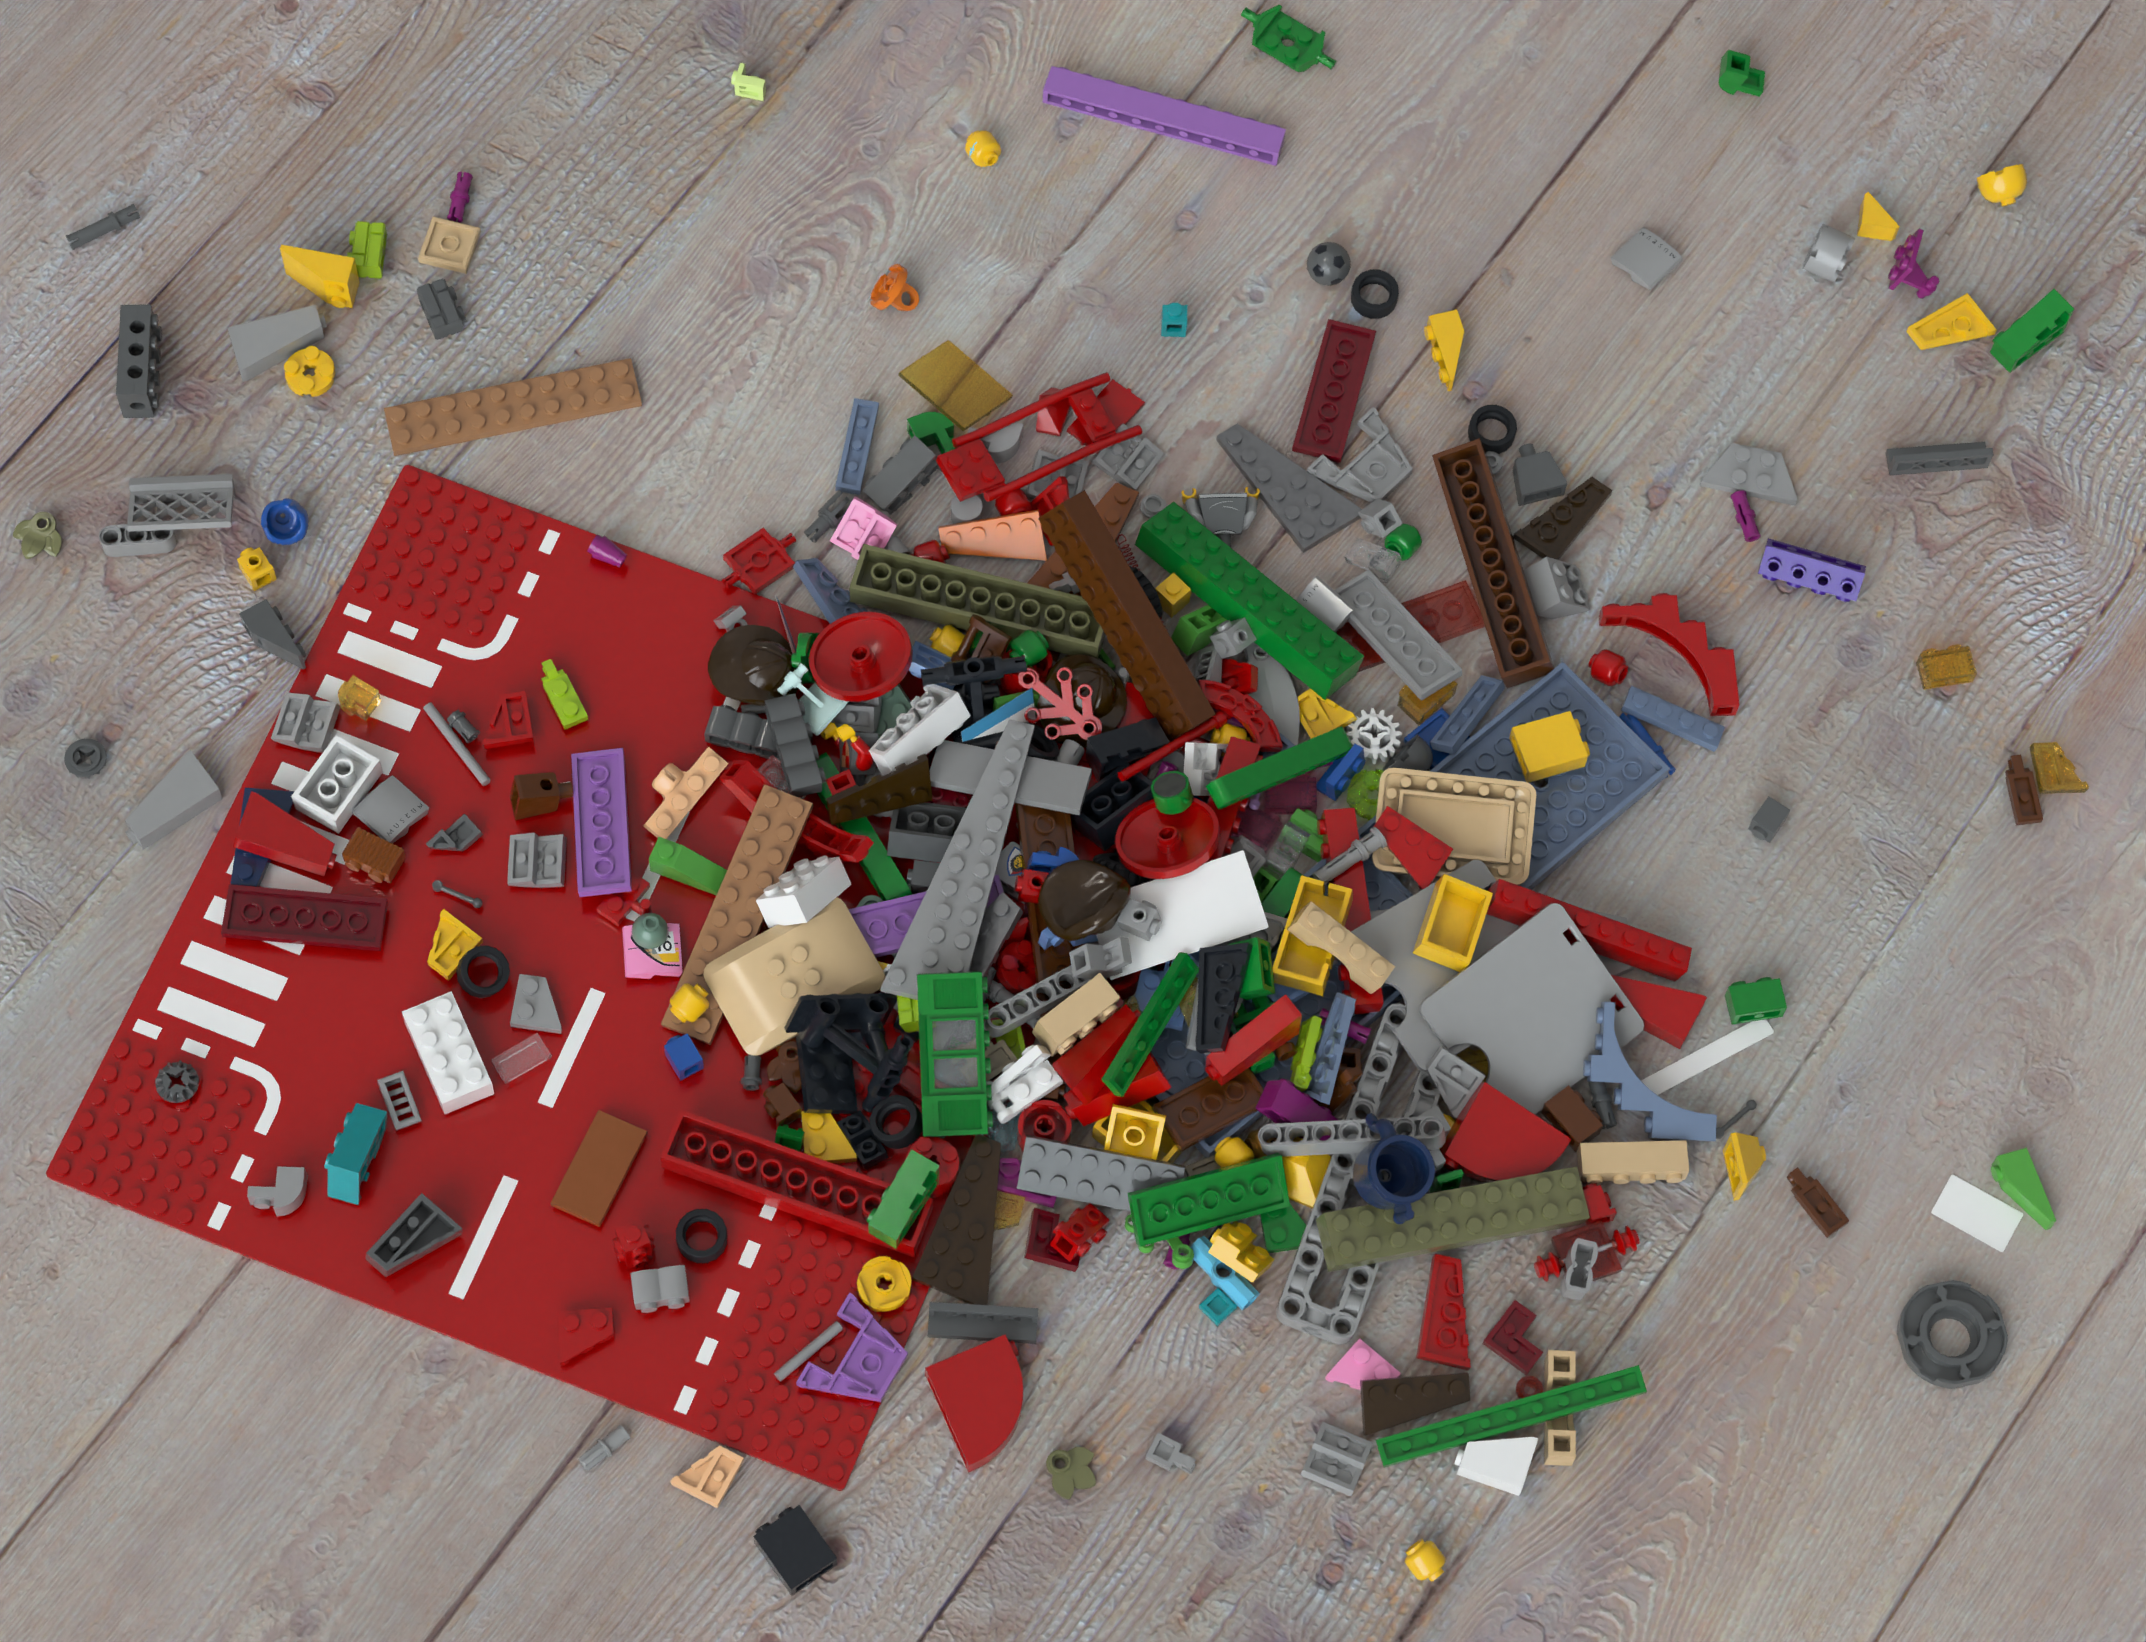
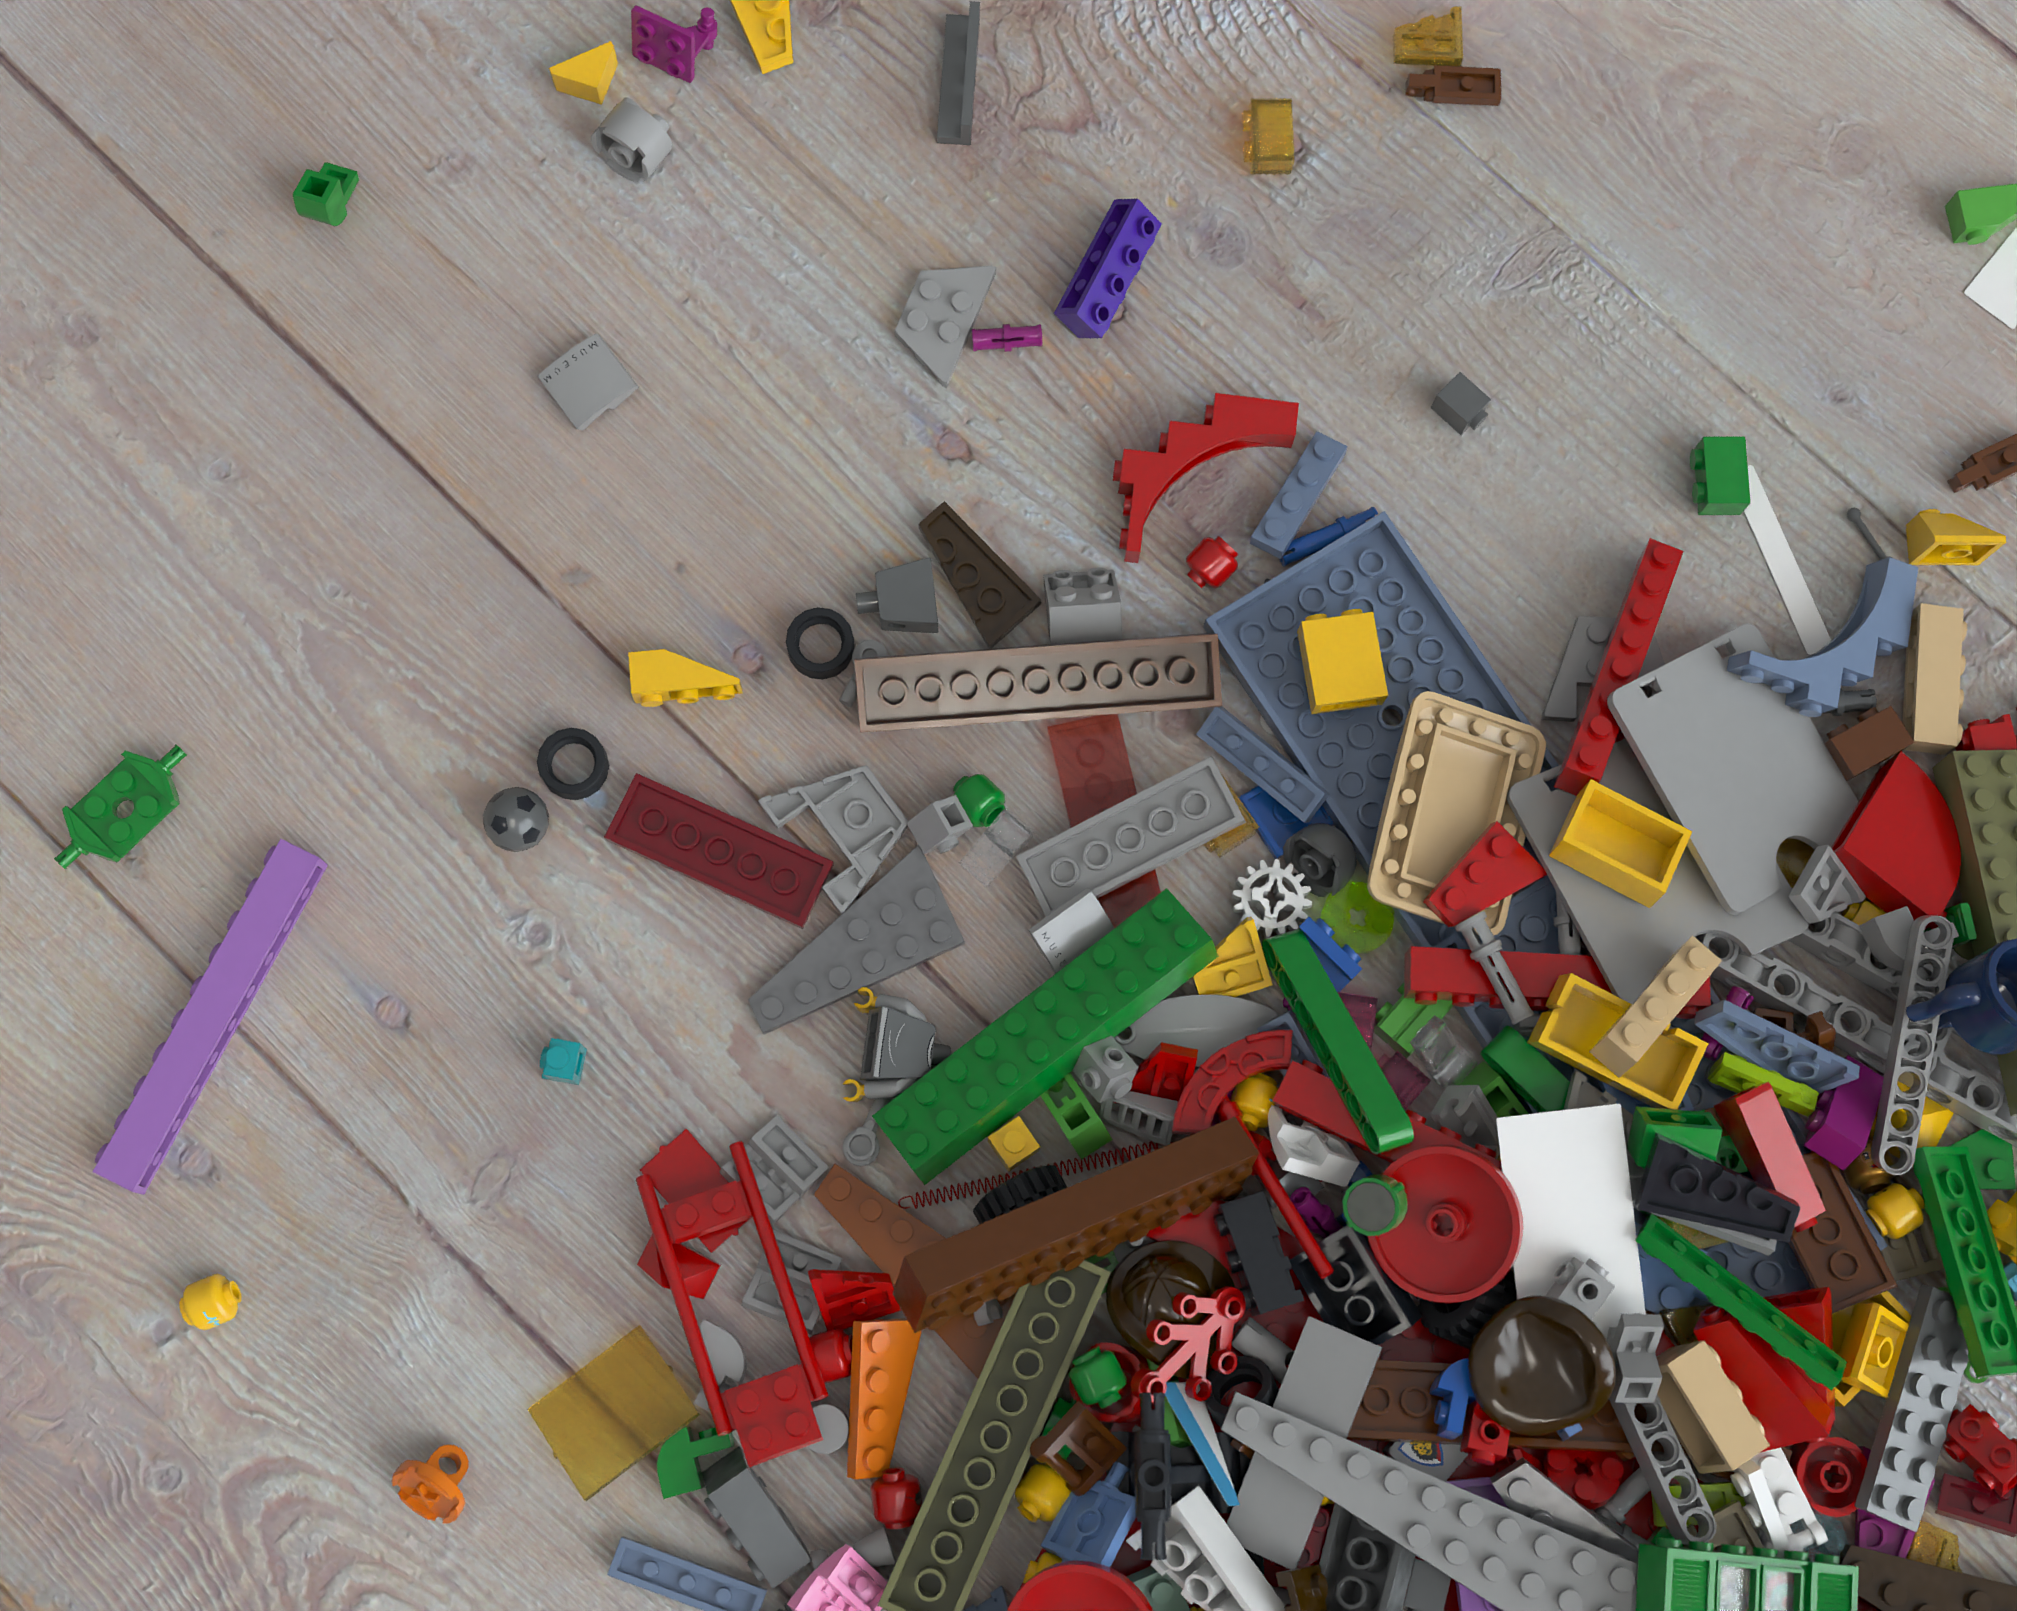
camera: 80 degrees left, 10 degrees up
(1664, 1010) = (1718, 597): red slope -> none

